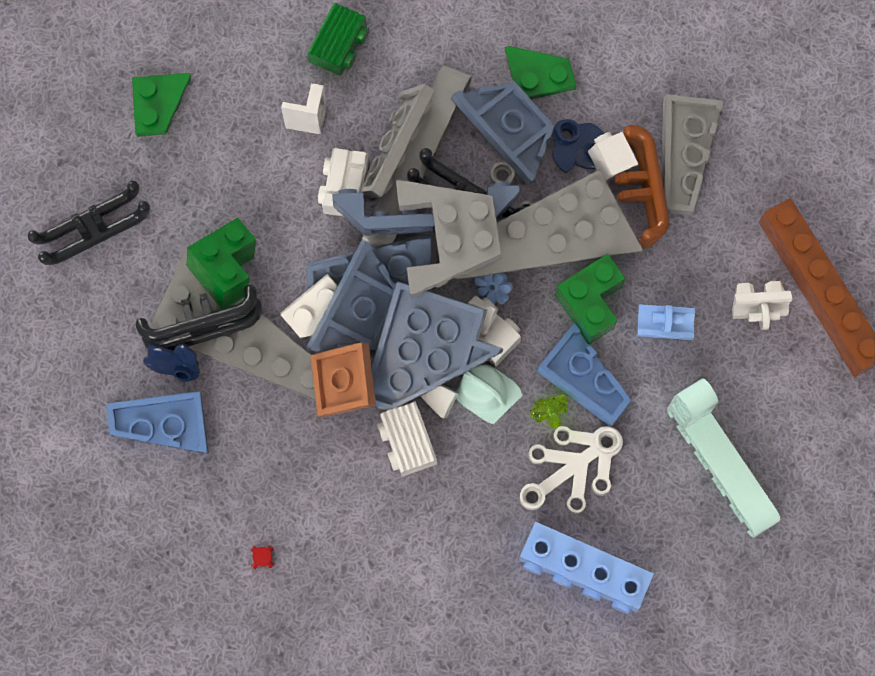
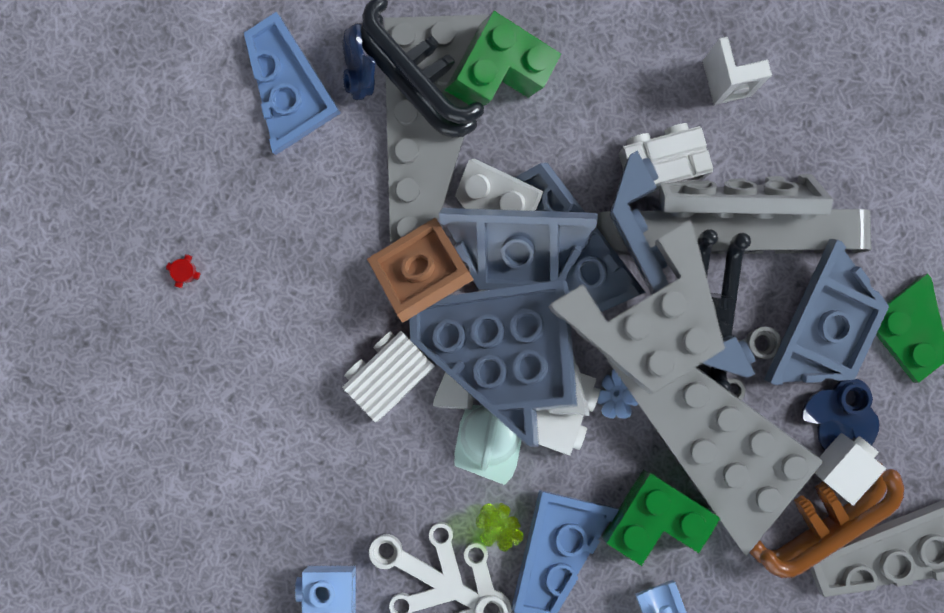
camera: 65 degrees right, 10 degrees up
(338, 39) = (841, 69): green brick -> none

